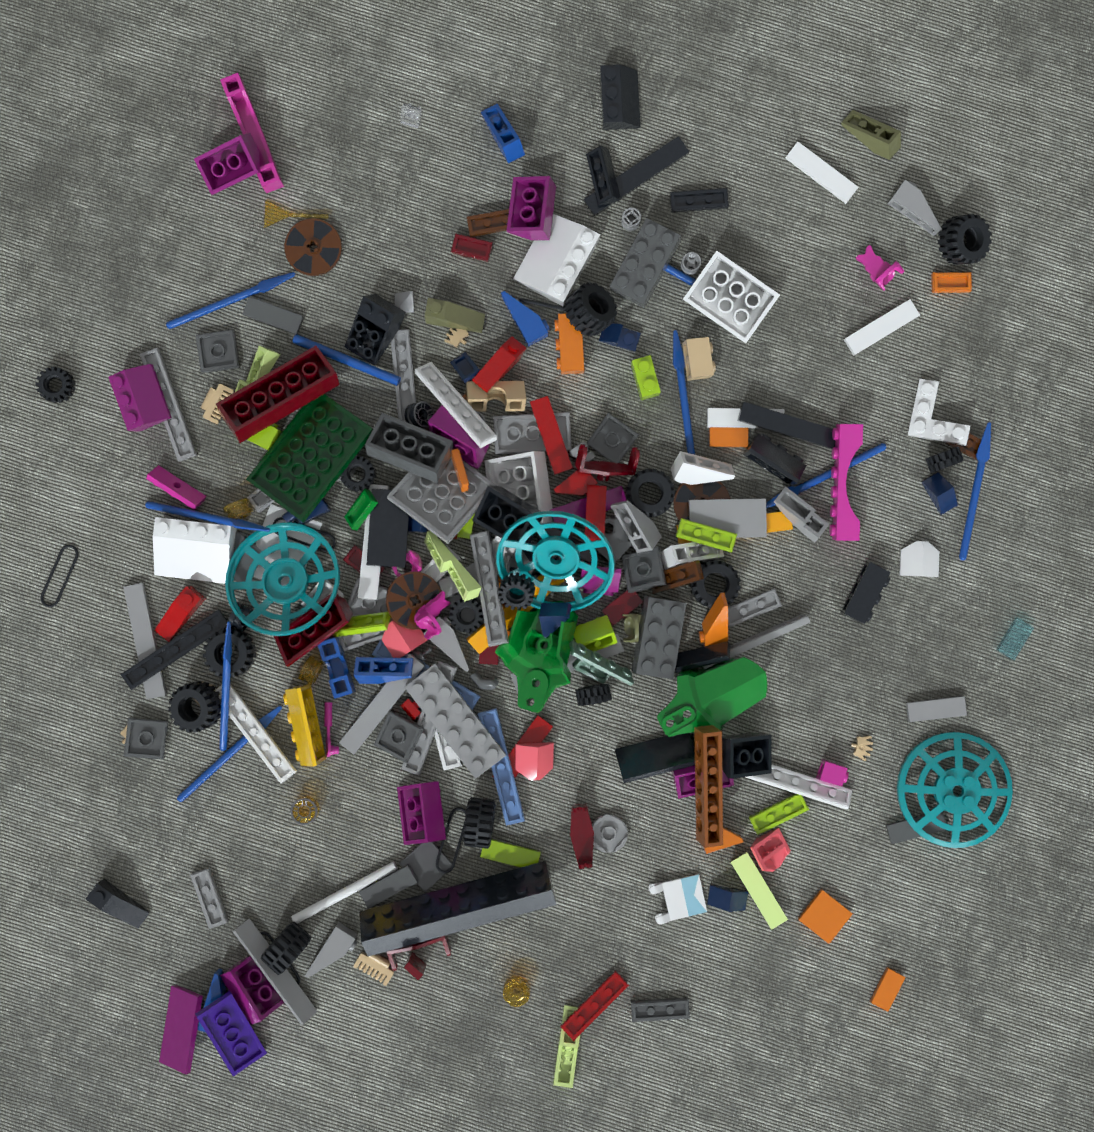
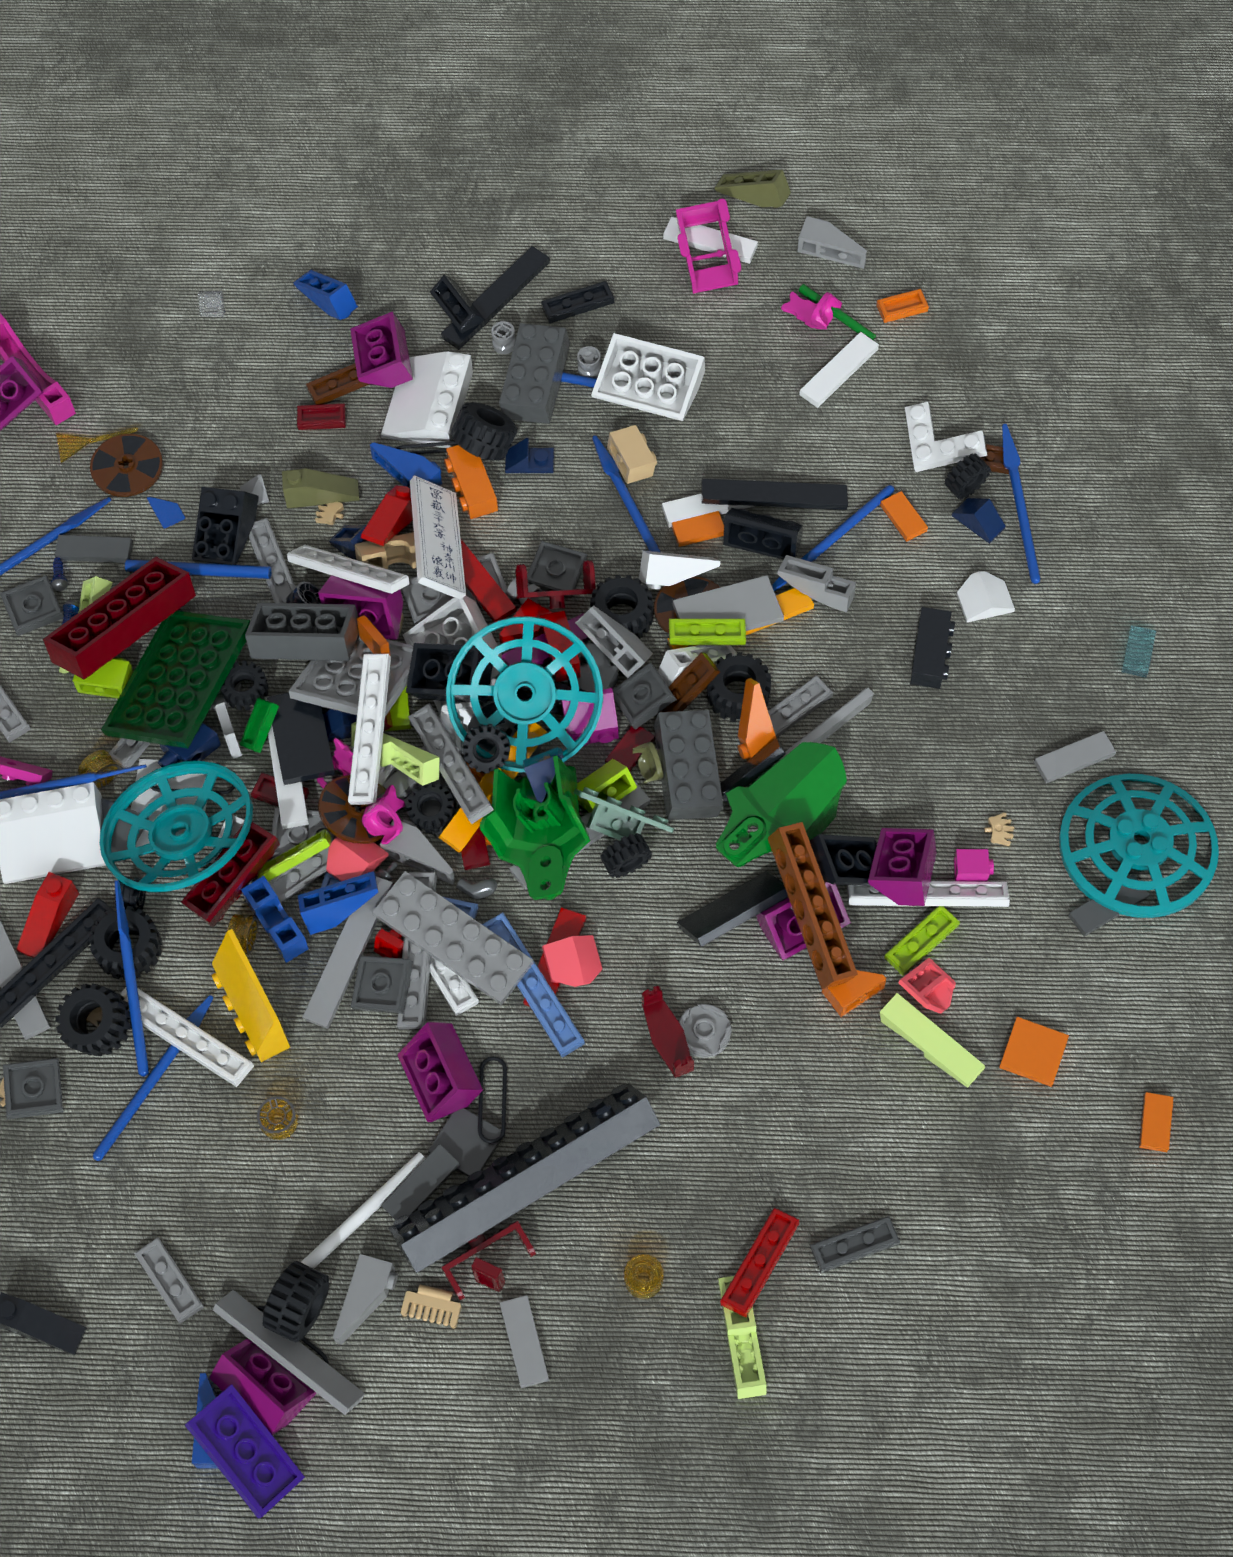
camera: 15 degrees left, 25 degrees down
(180, 1029) = (167, 1475): magenta tile -> none
(213, 397) = (35, 665): tan piece -> none
(241, 337) = (59, 580): none -> piece
(244, 365) = (70, 609): none -> clear blue piece
(330, 749) = (292, 1030): dark pink piece -> none
(335, 297) = (166, 511): none -> blue sticker
(338, 515) = (227, 727): none -> light grey tile
(427, 1008) = (524, 1341): none -> light grey tile
(437, 551) = (369, 729): none -> white tile
(479, 822) = (522, 1053): black tyre -> none
(510, 854) = (572, 1095): lime tile -> none
(529, 398) = (437, 538): none -> white tile
(619, 97) = (450, 227): black slope -> none
(645, 377) = (574, 490): lime brick -> none
(682, 897) = (833, 1085): white flag -> none
(727, 898) = (894, 1065): dark blue slope -> none
(784, 763) = (904, 865): none -> magenta slope
(817, 210) = (712, 277): none -> dark pink piece
(847, 441) = (874, 574): dark pink arch -> none
(885, 473) = (903, 516): none -> orange tile
(900, 277) = (837, 313): none -> green bar
(977, 239) = (898, 253): black tyre -> none

